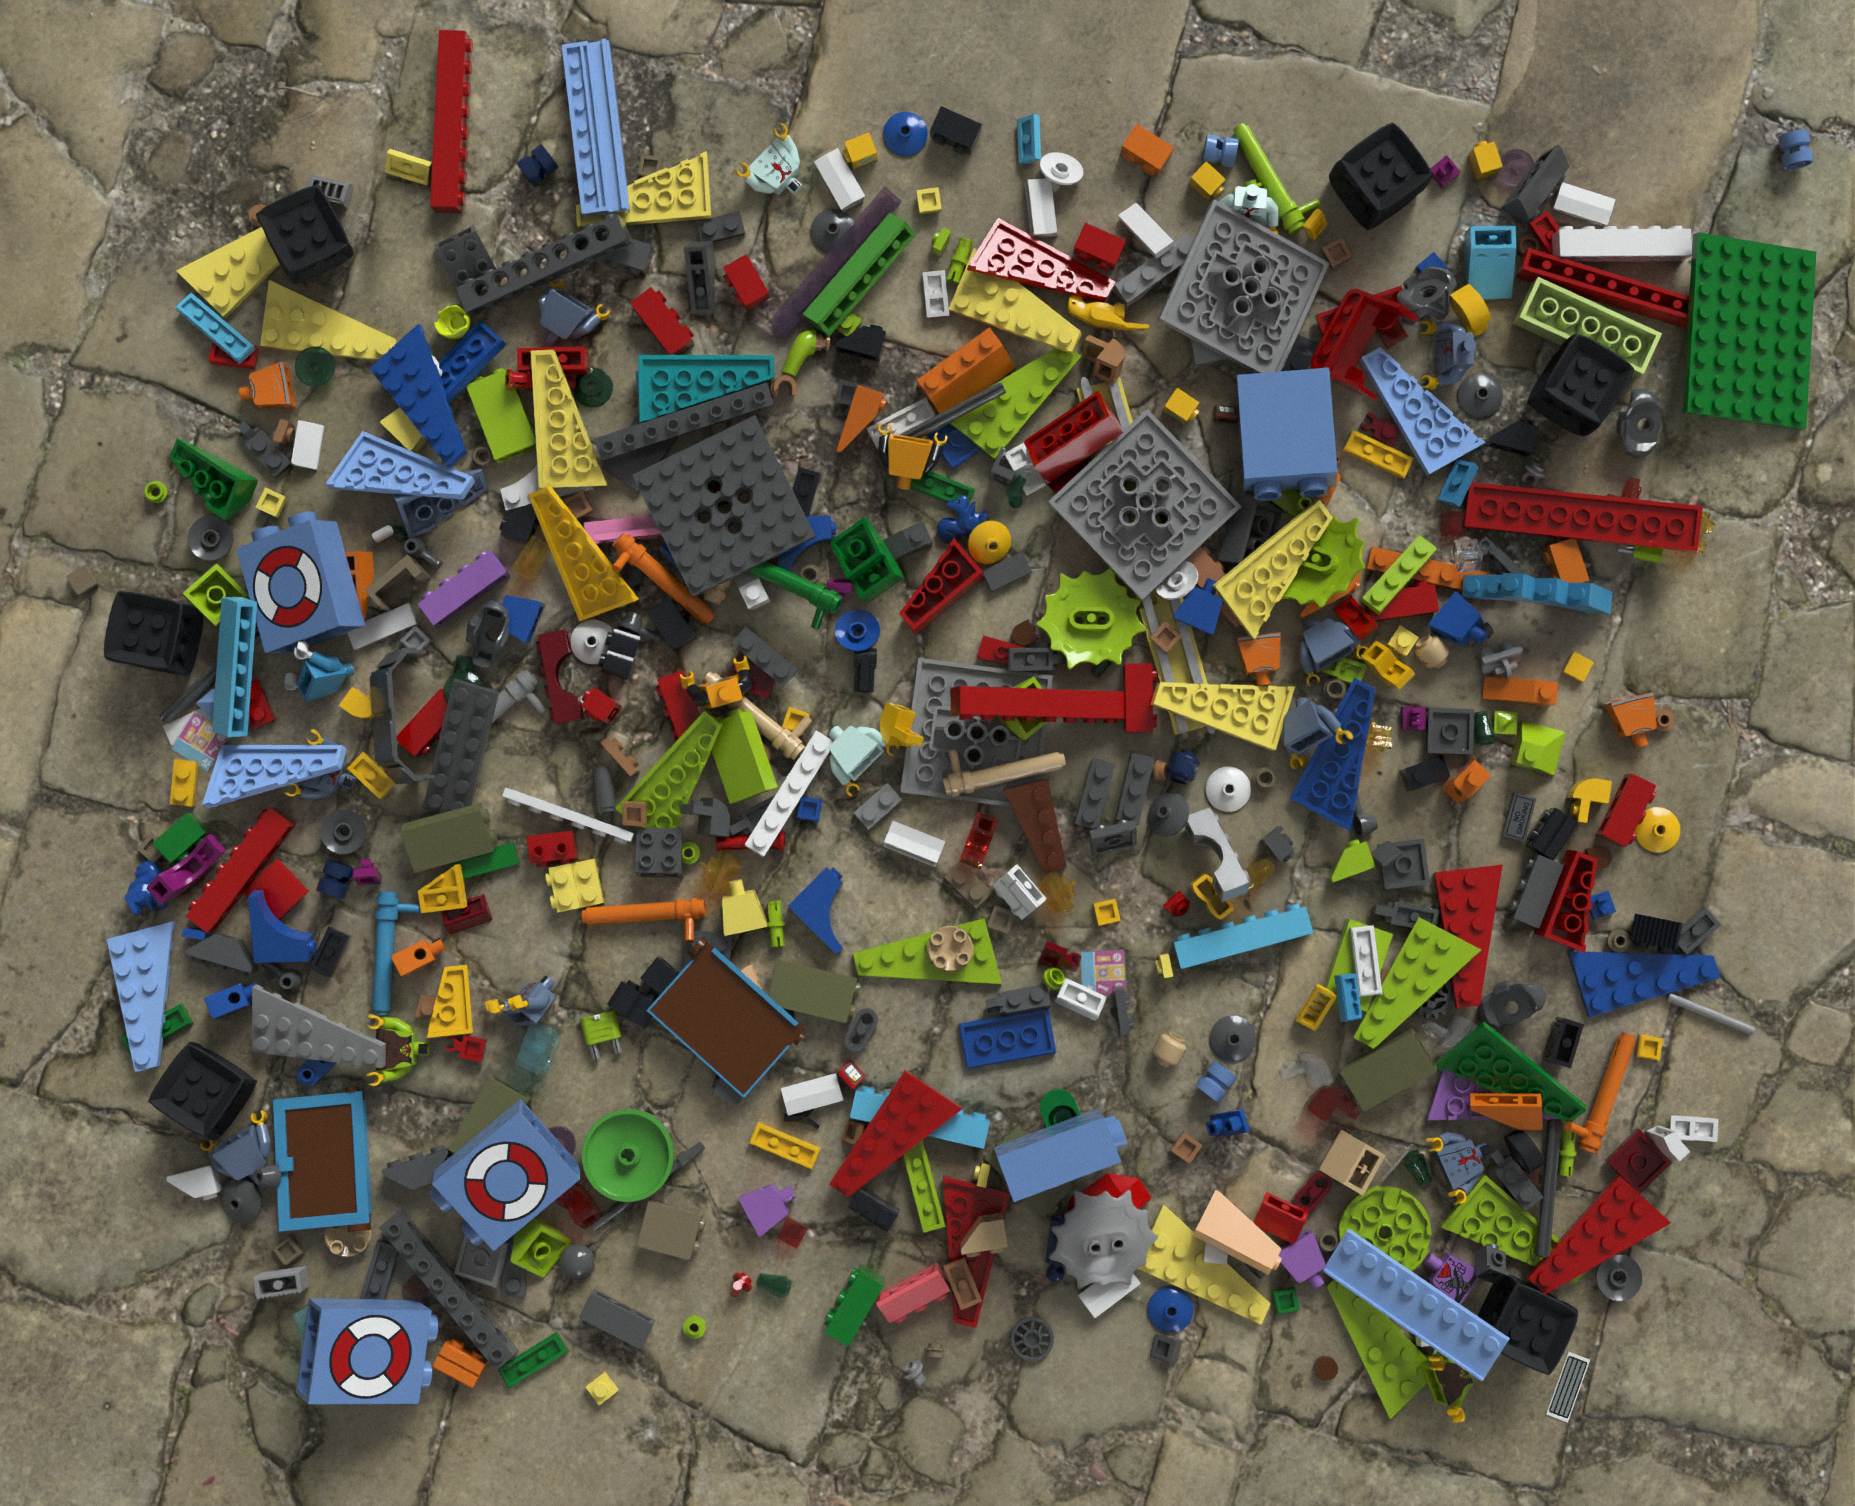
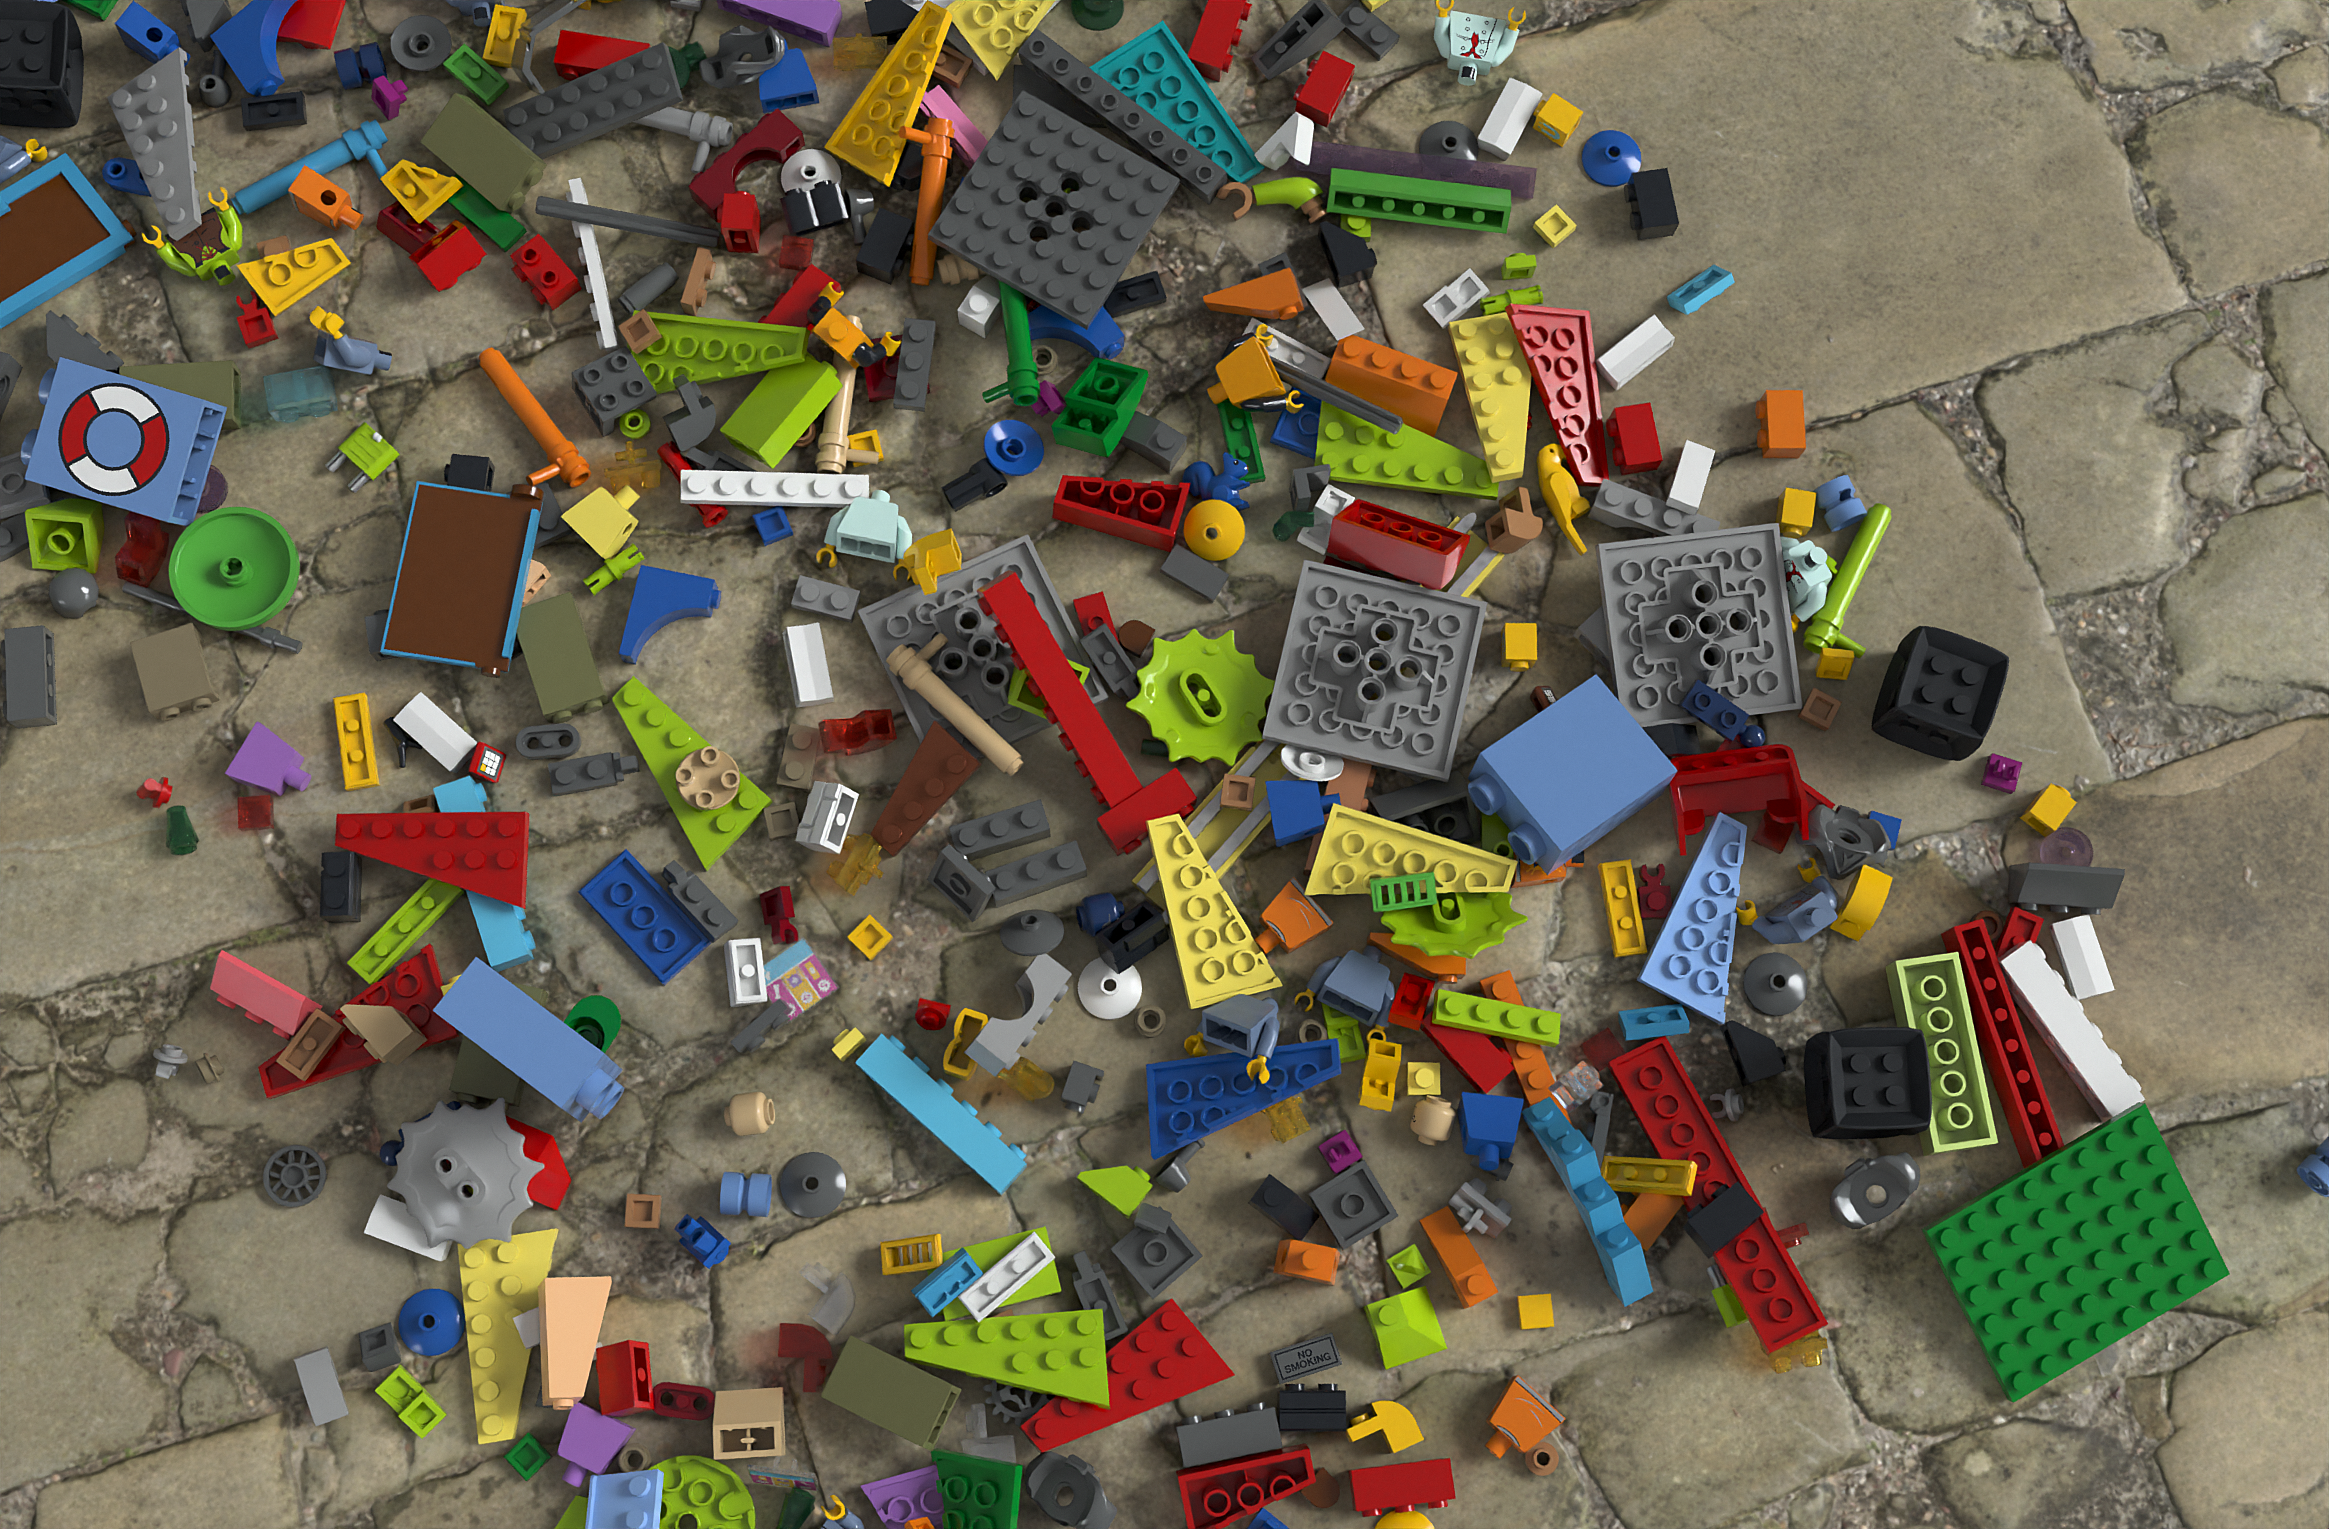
camera: 45 degrees right, 10 degrees down
(387, 809) = (476, 75): none -> bright green plate
(503, 901) = (448, 256): none -> red brick
(554, 776) = (627, 221): none -> dark grey axle
(575, 885) = (516, 324): light yellow plate -> none
(632, 1003) = (418, 461): black brick -> none
(640, 683) = (796, 253): none -> clear red plate
(694, 1319) = (82, 775): lime plate -> none
(770, 327) = (1290, 139): none -> white slope
(853, 1304) = (207, 931): green brick -> none
(895, 375) = (1333, 309): none -> white sticker
(896, 1016) = (590, 772): none -> dark grey hinge
(1053, 978) = (756, 923): lime plate -> none
(1061, 168) = (1693, 343): white dish -> none
(1159, 771) = (1076, 890): medium nougat plate -> none
(1169, 1395) = (321, 1386): none -> light grey slope
(1210, 757) = (1131, 937): none -> black brick
(1210, 1349) = (410, 1401): none -> lime slope
(1293, 598) = (1376, 894): none -> bright green slope
(1305, 315) = (1720, 715): none -> dark blue plate
(1483, 729) = (1381, 1244): clear green cone -> none
(1490, 260) = (1937, 890): medium azure slope -> none
(1548, 548) = (1649, 1175): none -> yellow tile
(1604, 525) = (1722, 1219): none -> black brick

